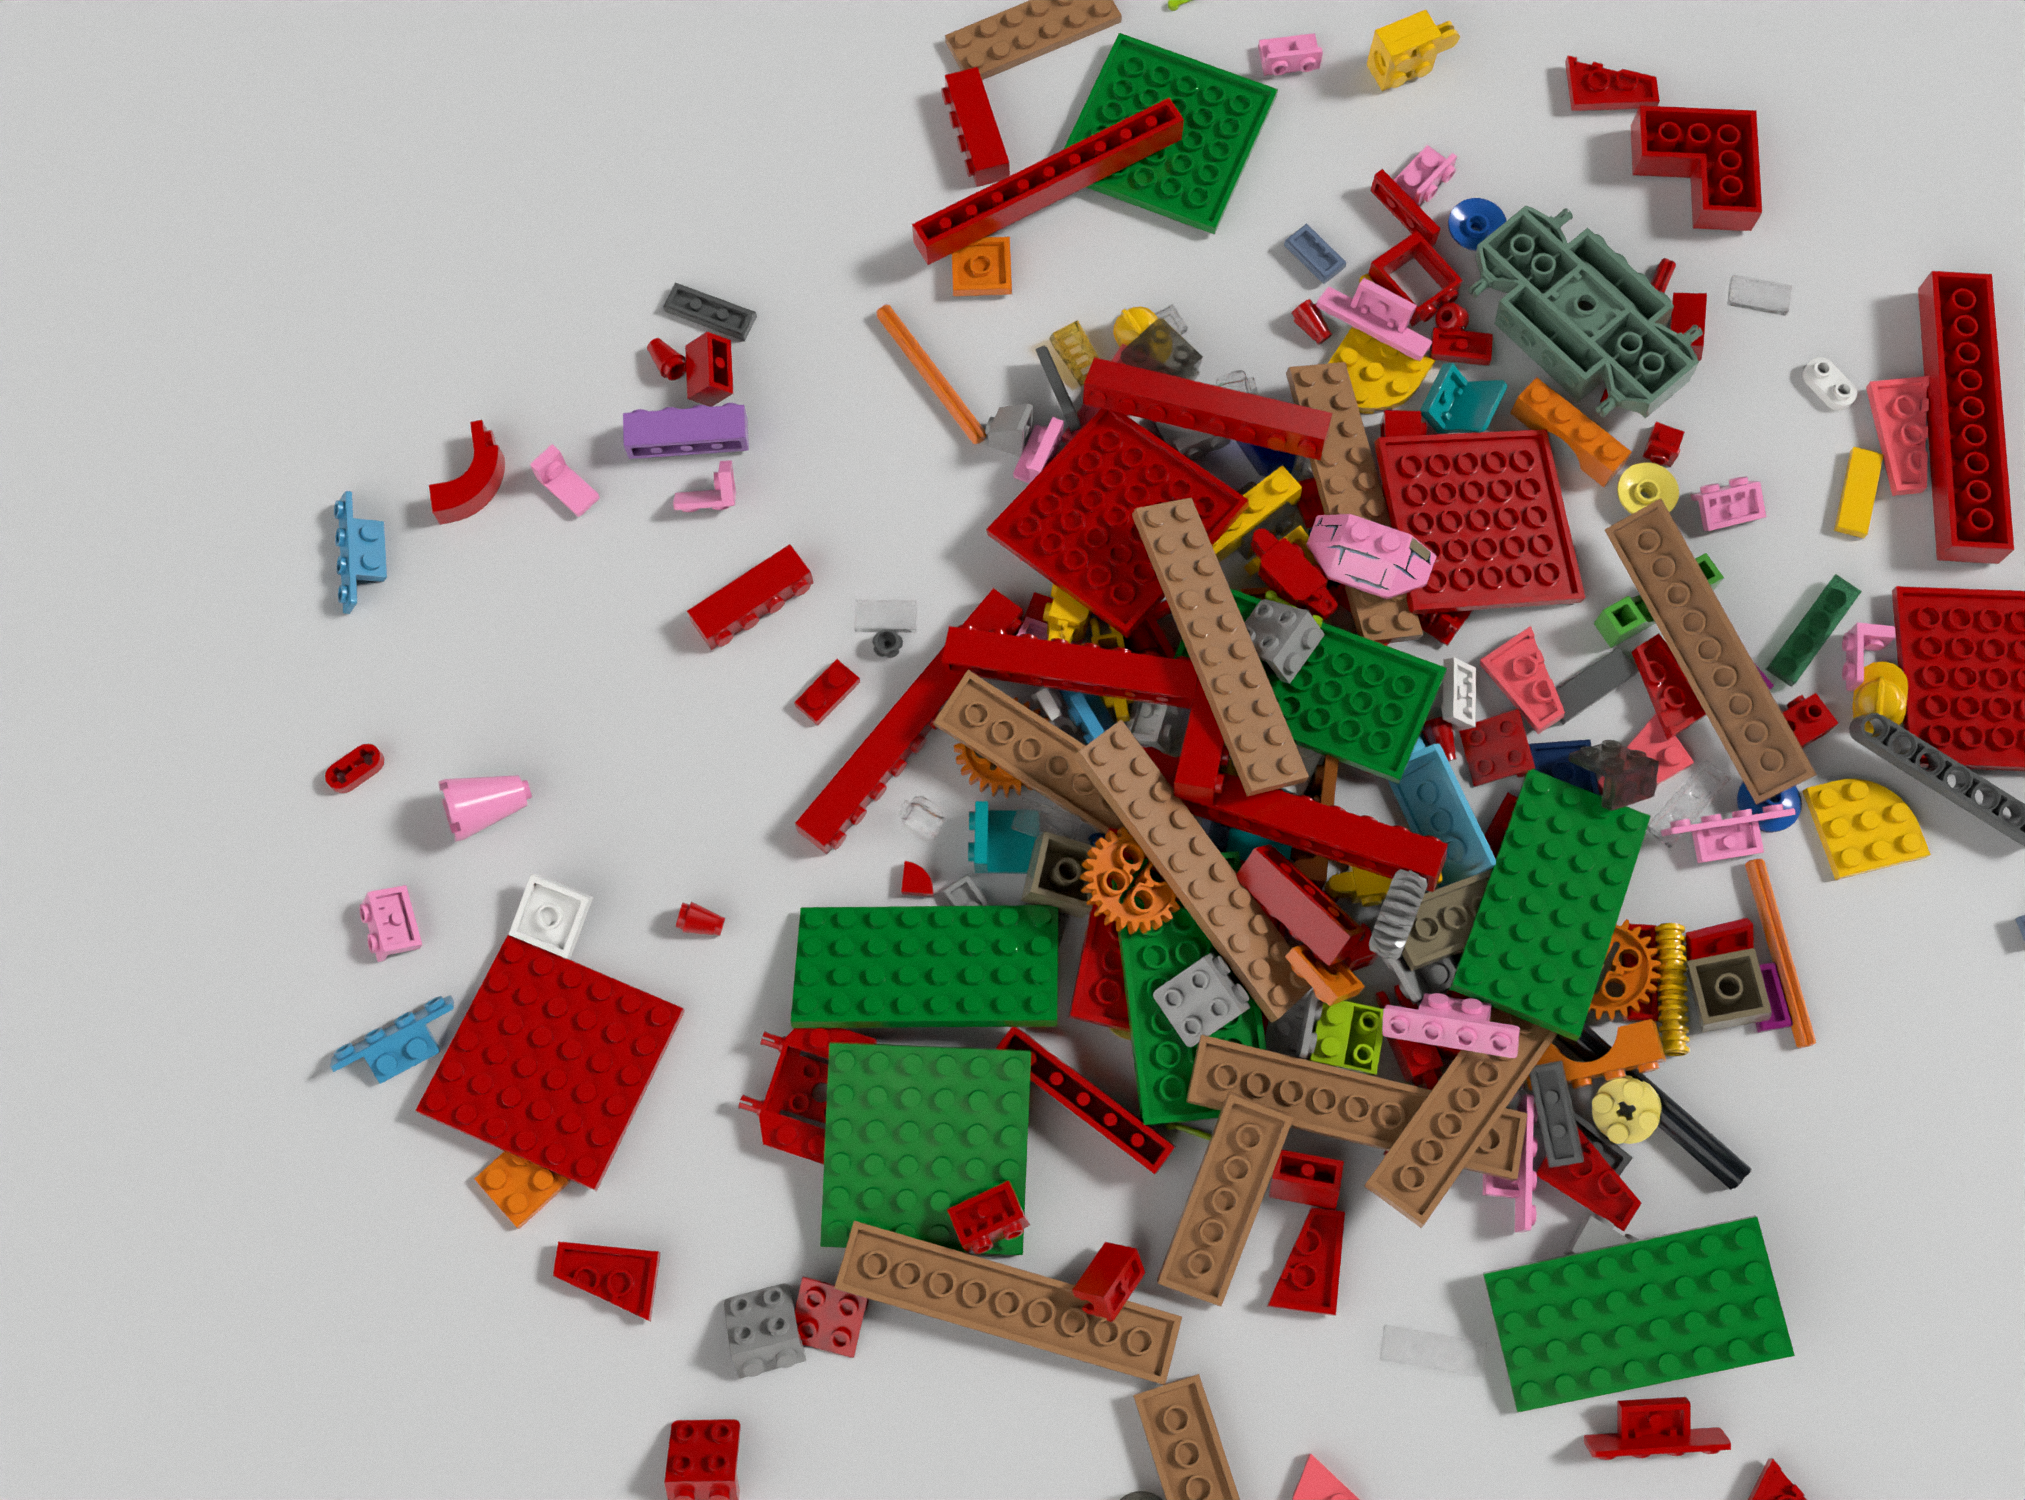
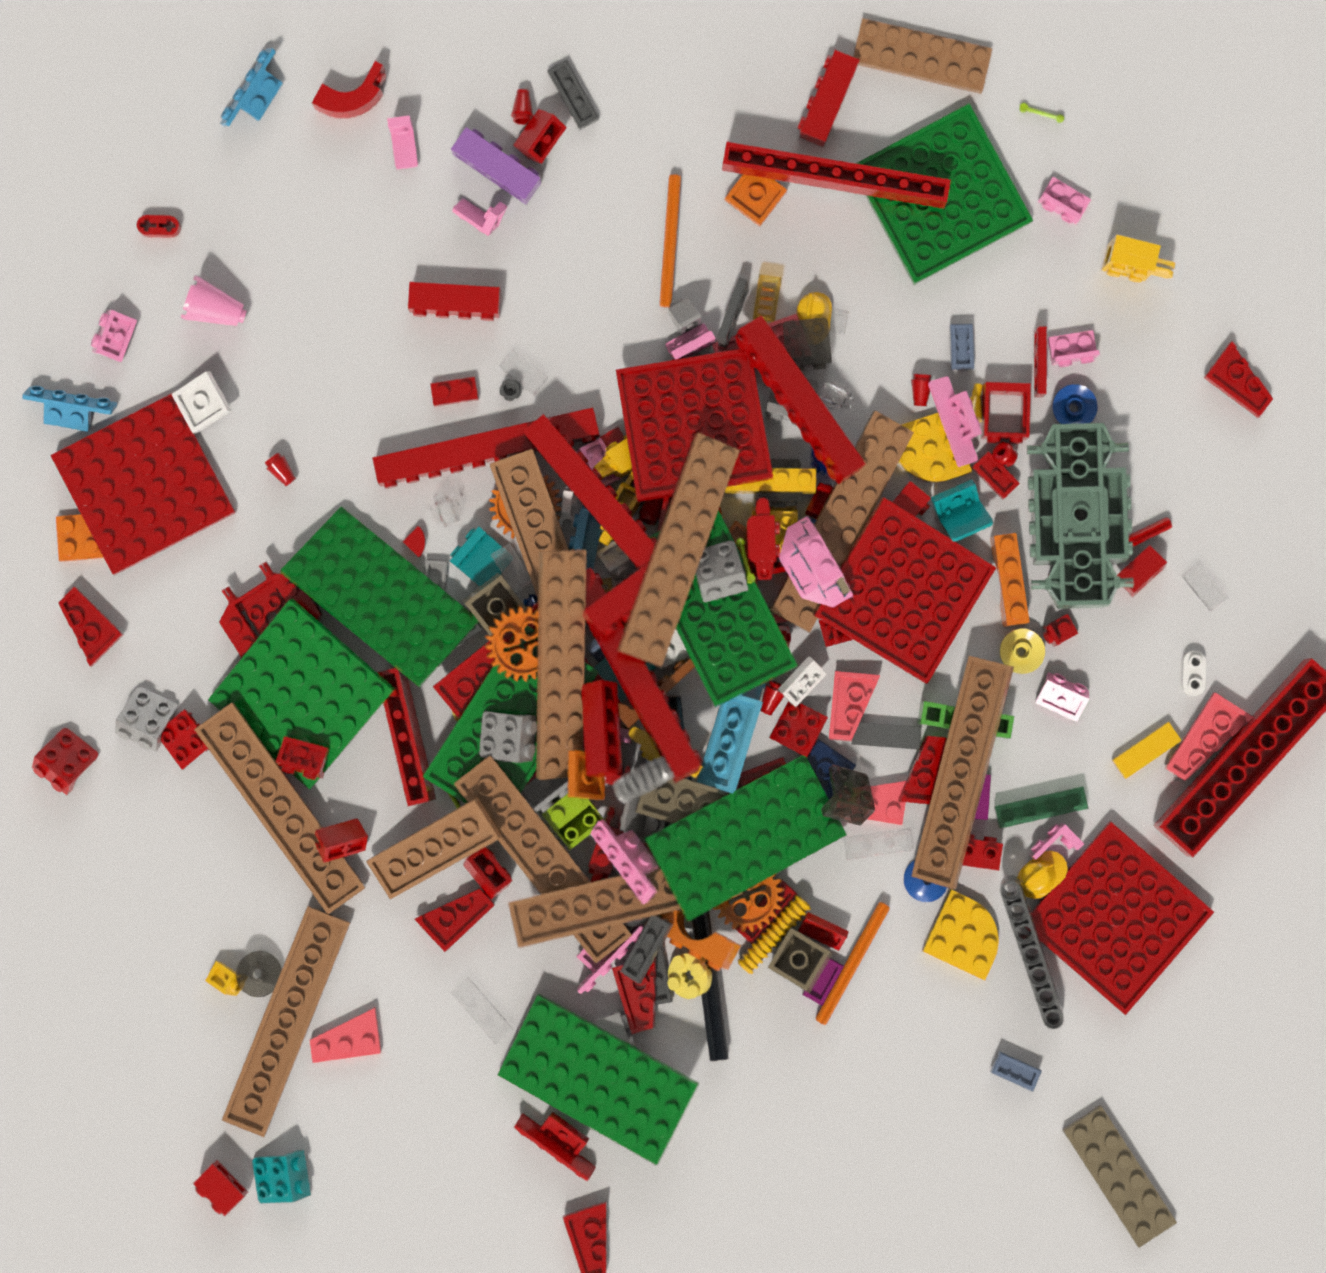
camera: 35 degrees right, 15 degrees up
(1710, 148) = (1260, 474): red brick -> none
(1730, 837) = (880, 880): bright pink bracket -> none

